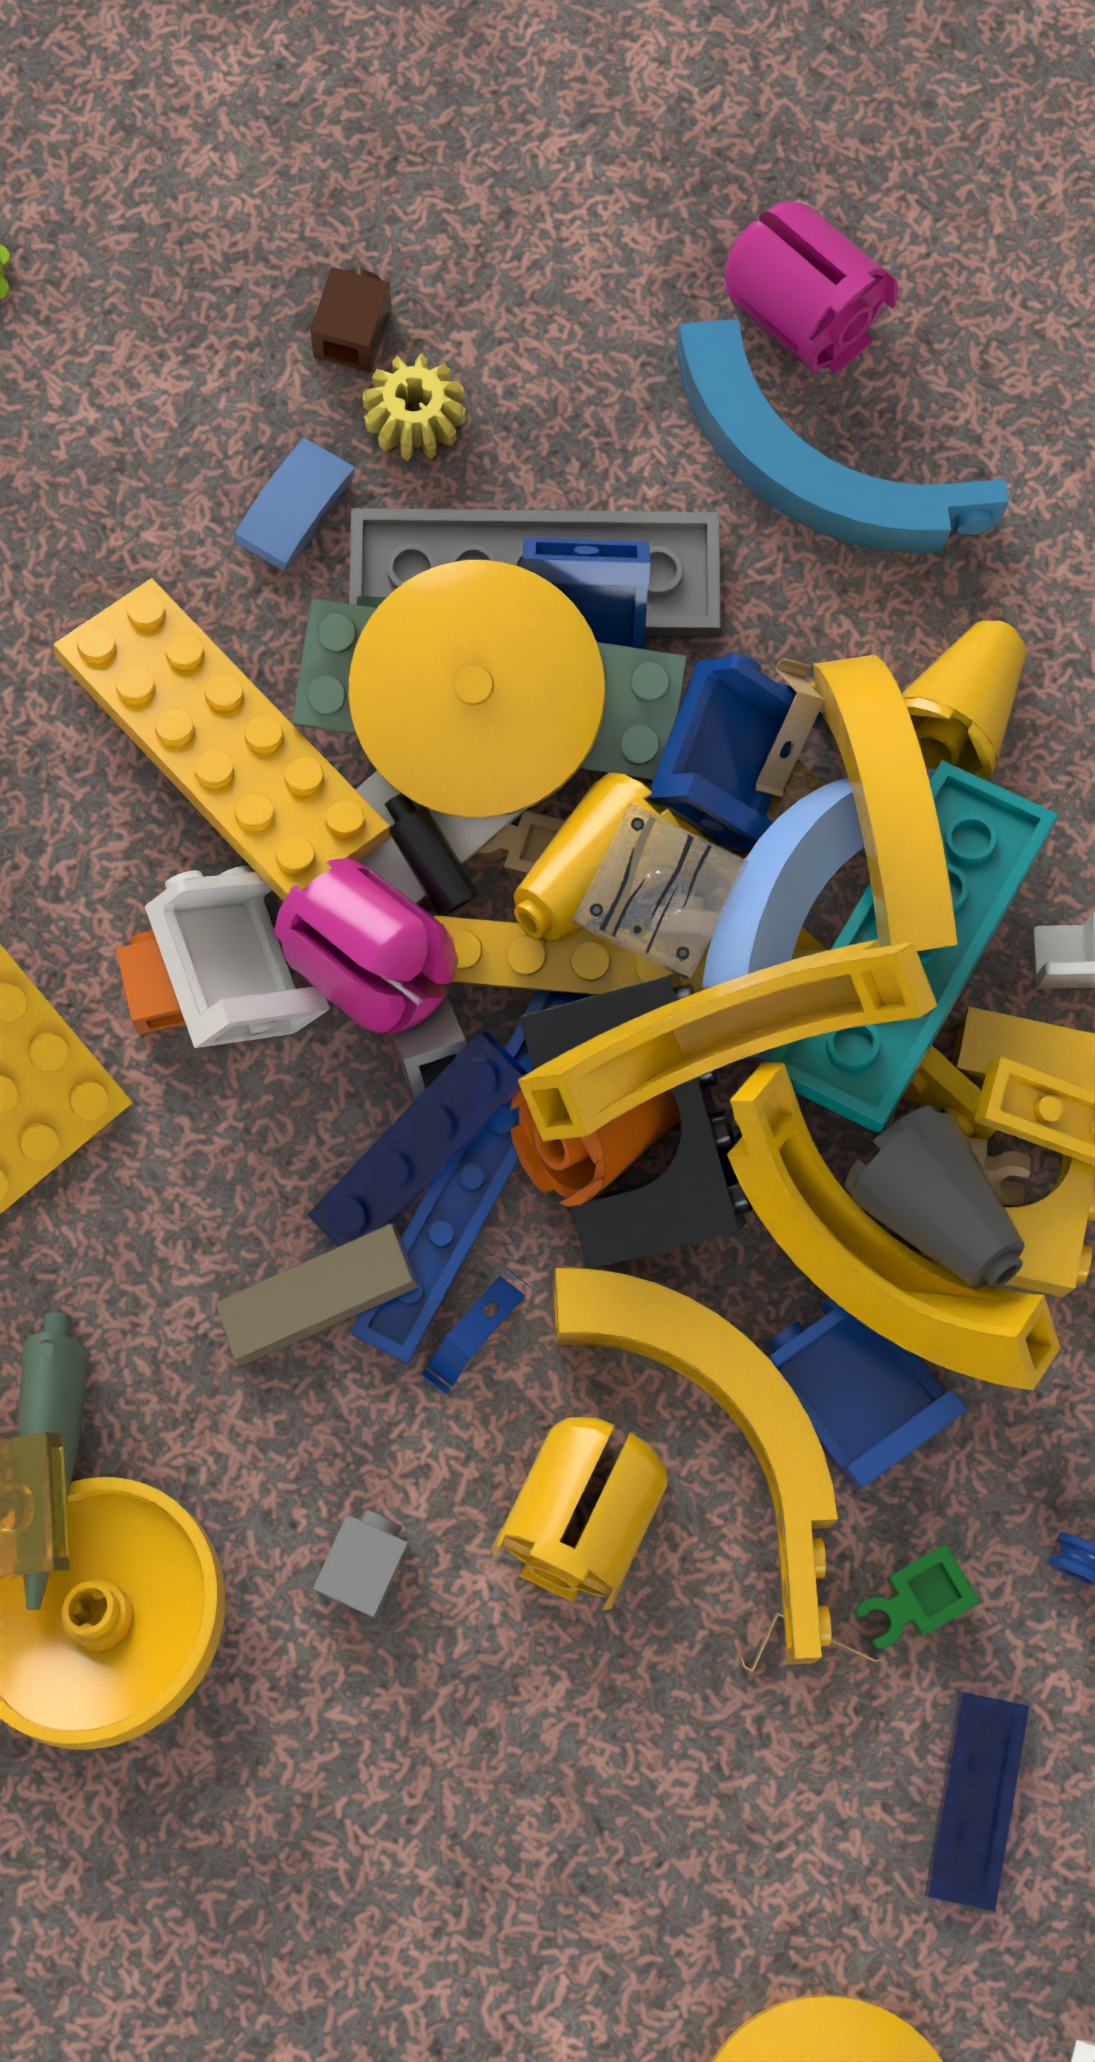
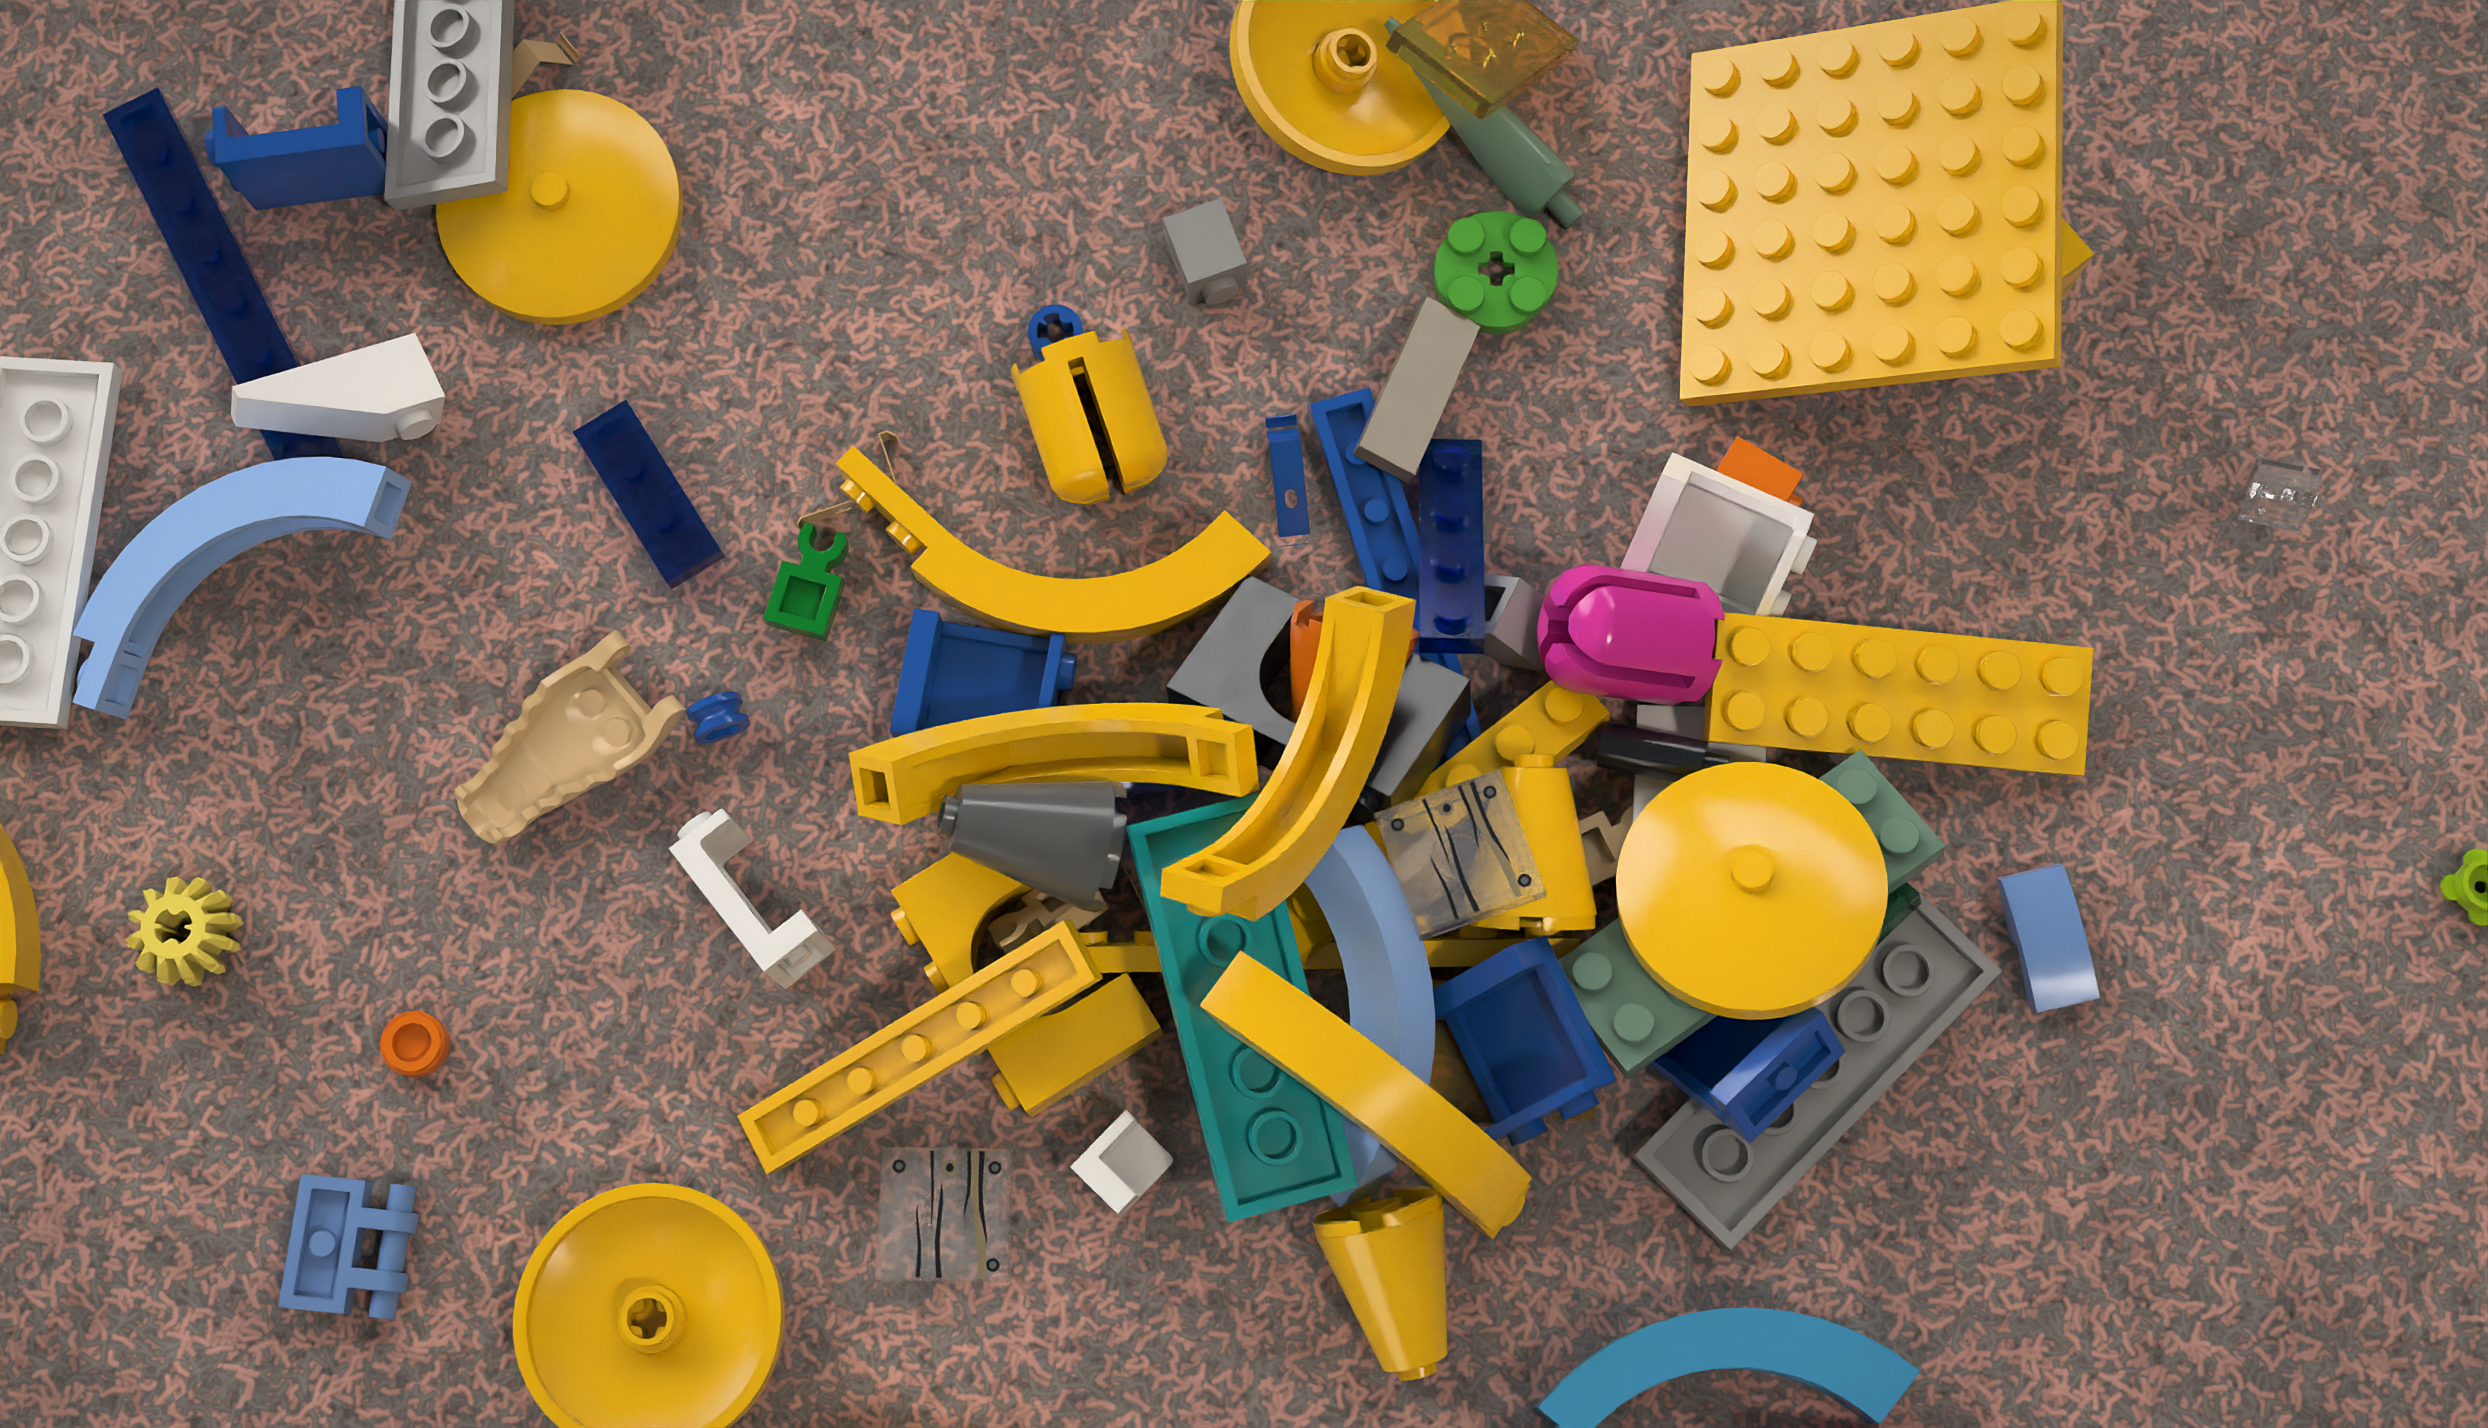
camera: 145 degrees right, 0 degrees up
(158, 1373) = (1505, 238): none -> bright green plate
(351, 318) = (2171, 1129): reddish brown brick -> none
(437, 412) = (2045, 1130): light yellow gear -> none
(558, 1616) = (1048, 315): none -> blue bush
(794, 728) = (1497, 1114): tan piece -> none

